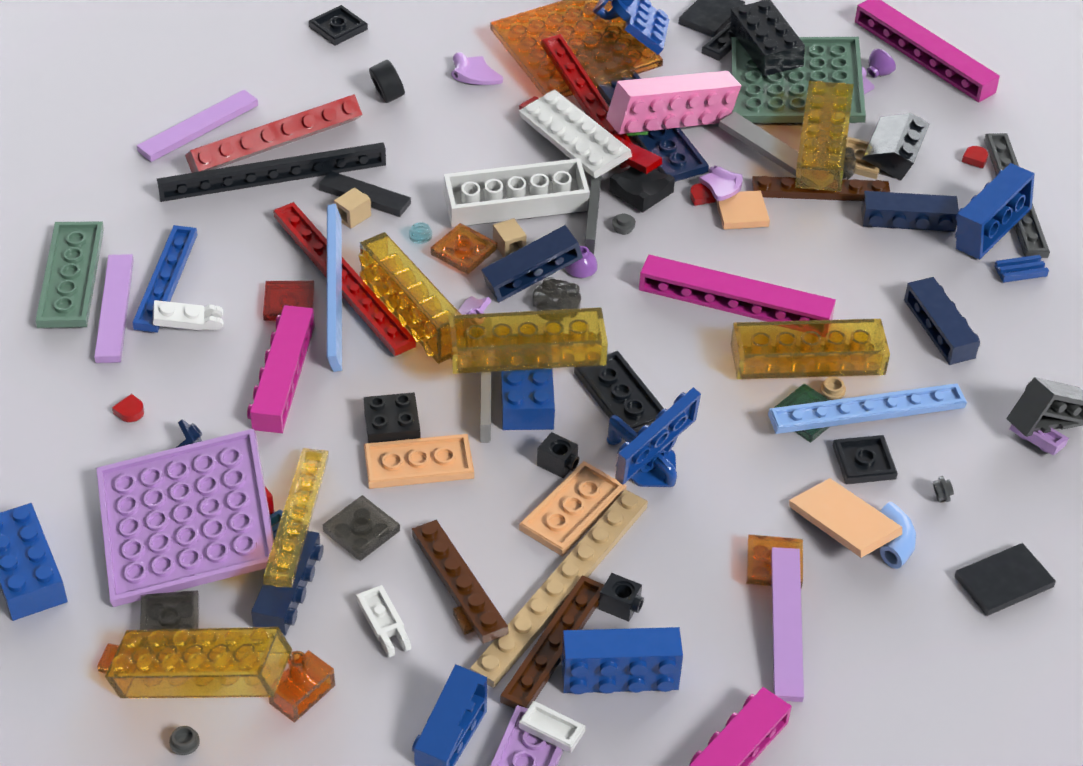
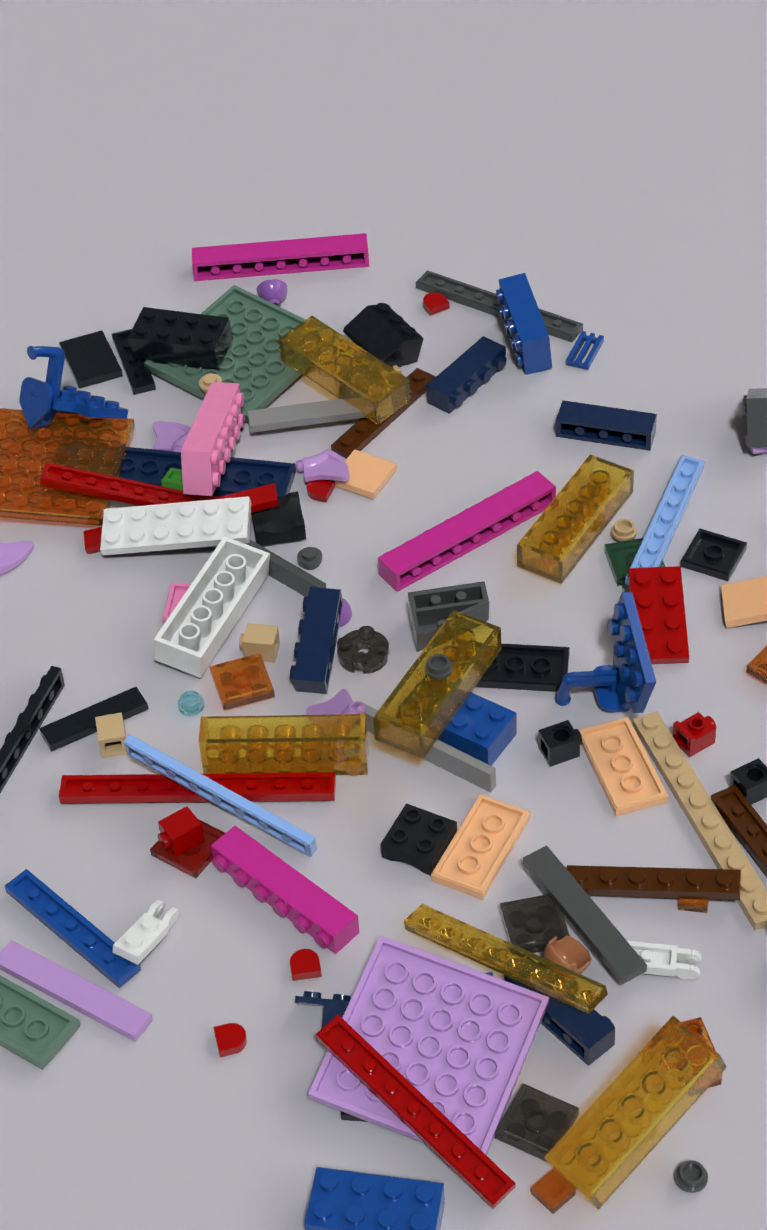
camera: 50 degrees left, 0 degrees up
(120, 537) = (416, 1111): none -> red tile
(225, 416) = (305, 965): none -> red tile
(286, 284) = (180, 831): none -> red brick
(338, 558) = (568, 953): none -> nougat hair
(385, 550) = (585, 915): none -> dark grey tile
(526, 324) = (438, 667): none -> dark grey plate
(634, 321) = (432, 607): none -> dark grey wedge
(643, 535) = (694, 733): none -> red brick
(743, 77) = (205, 381): none -> tan plate
(750, 450) = (661, 612): none -> red plate

